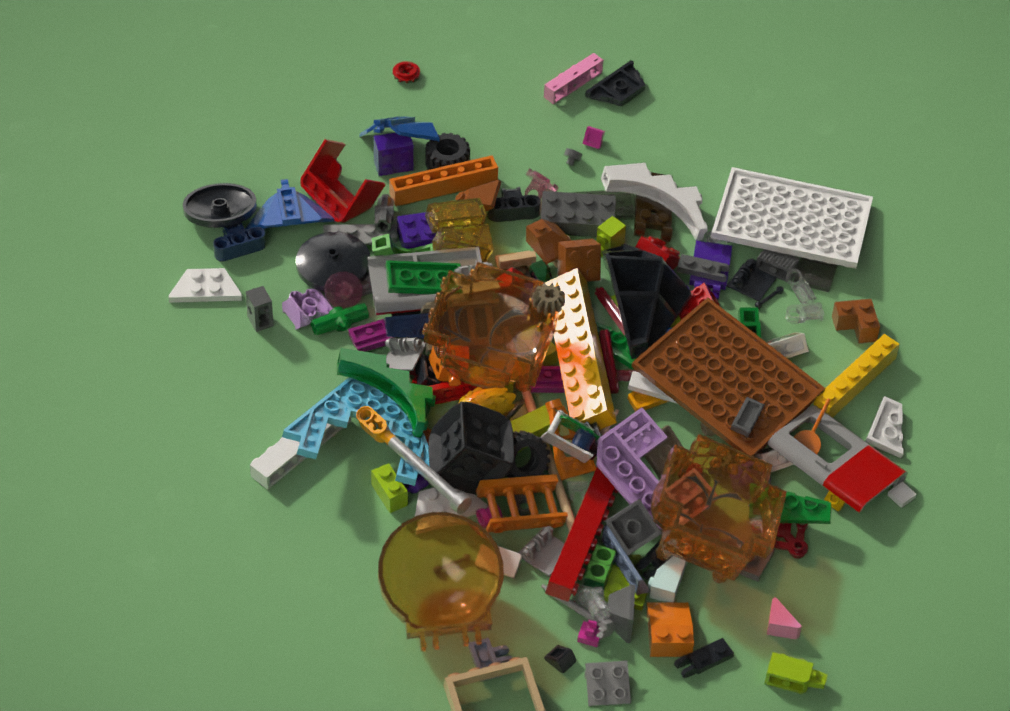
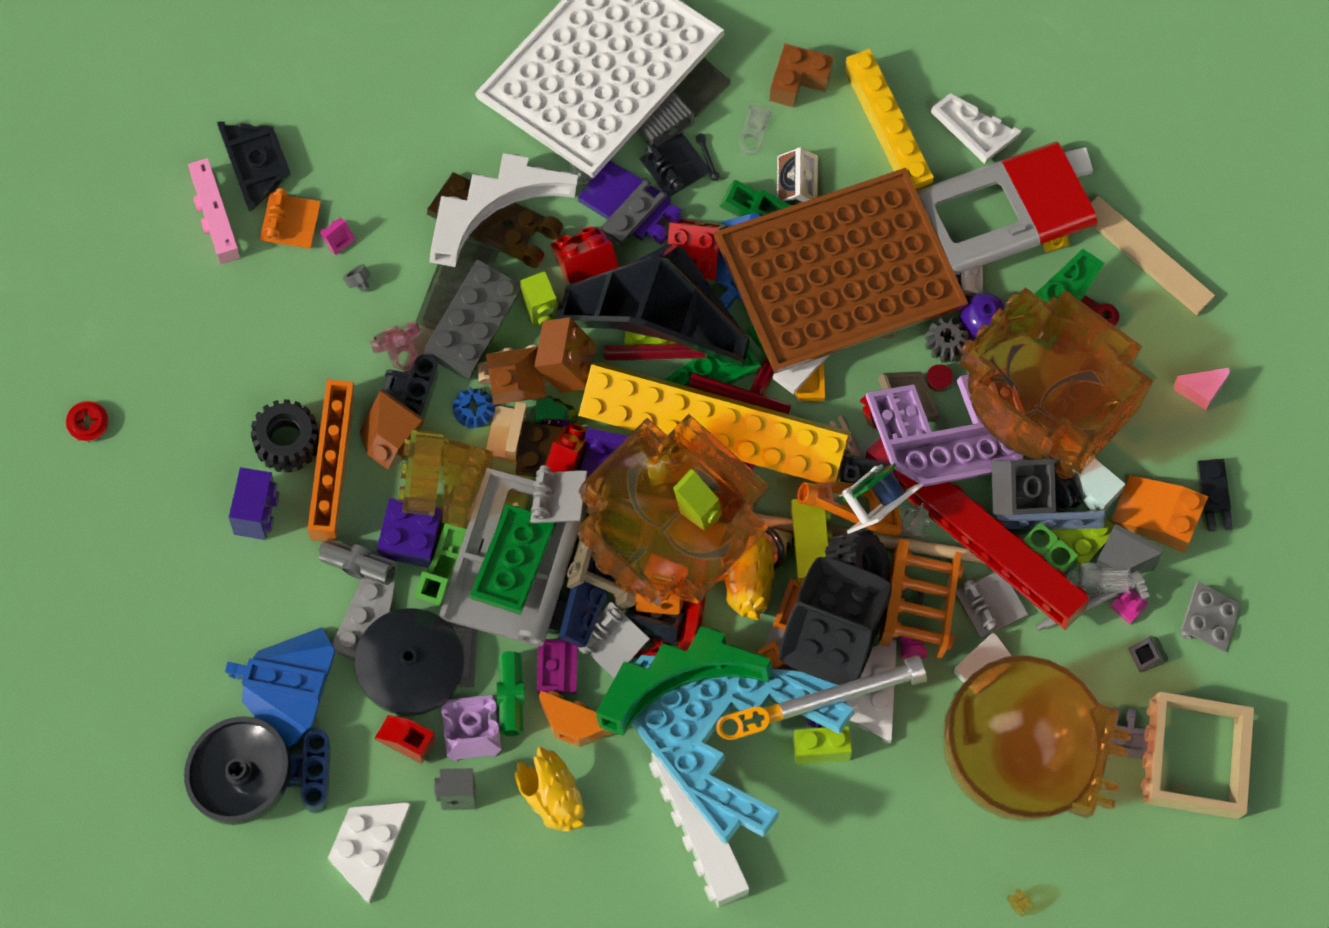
camera: 65 degrees left, 20 degrees up
(281, 279) = (406, 737): none -> red slope
(282, 356) = (551, 791): none -> yellow head
(322, 184) = (280, 612): red windscreen -> none
(332, 349) = (570, 720): none -> orange slope
(334, 638) = (1020, 902): none -> clear yellow bush
(343, 290) = (472, 669): clear pink tile -> none
(405, 127) = (213, 478): blue panel -> none
(512, 341) = (697, 501): none -> lime slope
(515, 243) = (465, 416): none -> blue gear
(548, 299) = (682, 432): dark tan gear -> none
(591, 113) = (290, 220): none -> orange hinge
(747, 416) = (914, 277): dark grey tile -> none
(793, 674) = (1279, 410): lime hinge -> none
(801, 287) = (720, 113): clear piece -> none
(810, 438) = (959, 225): orange piece -> none
(860, 559) = (1150, 257): none -> tan tile

